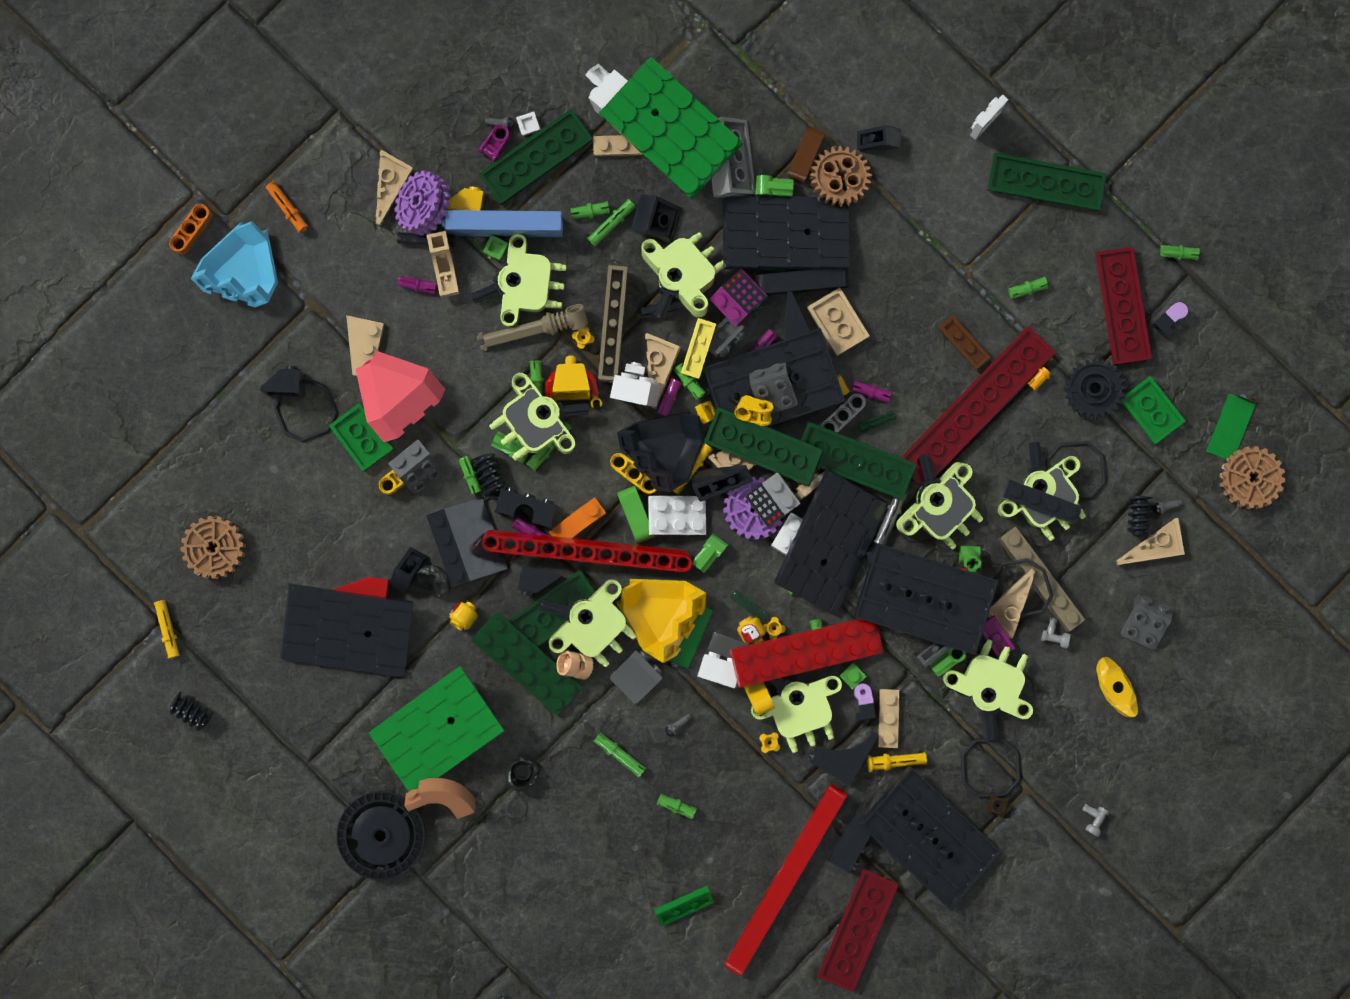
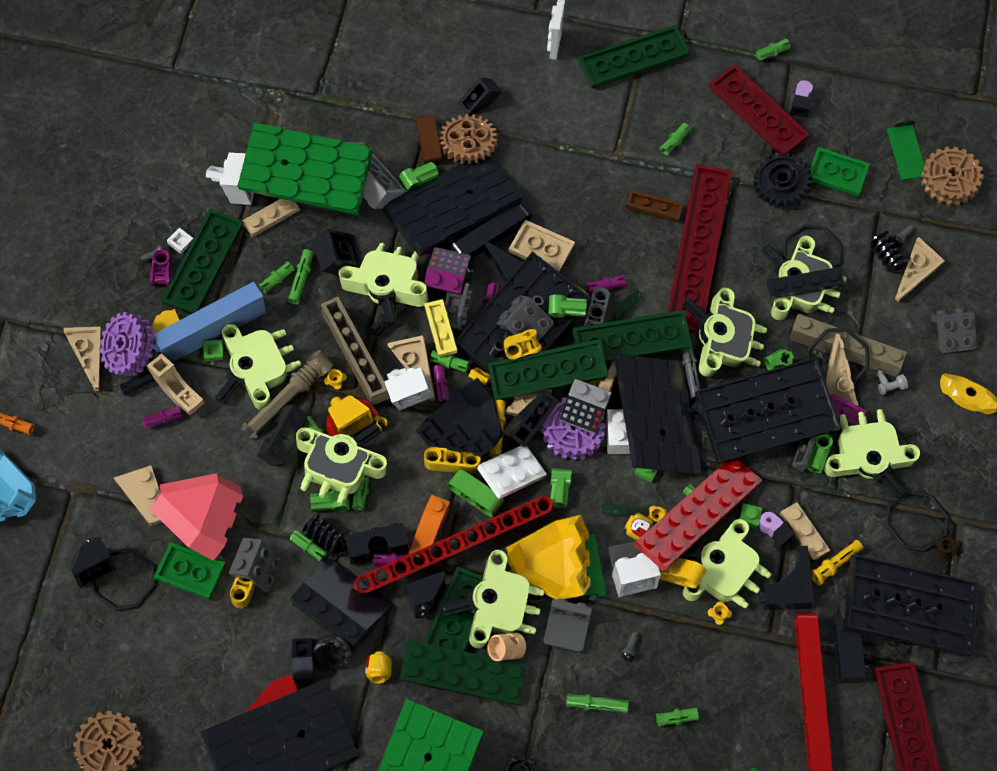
camera: 35 degrees left, 20 degrees down
(497, 372) = (278, 445): none -> black arch
(814, 396) = (561, 306): none -> bright green piece
(1039, 378) = (733, 197): light orange pin -> none

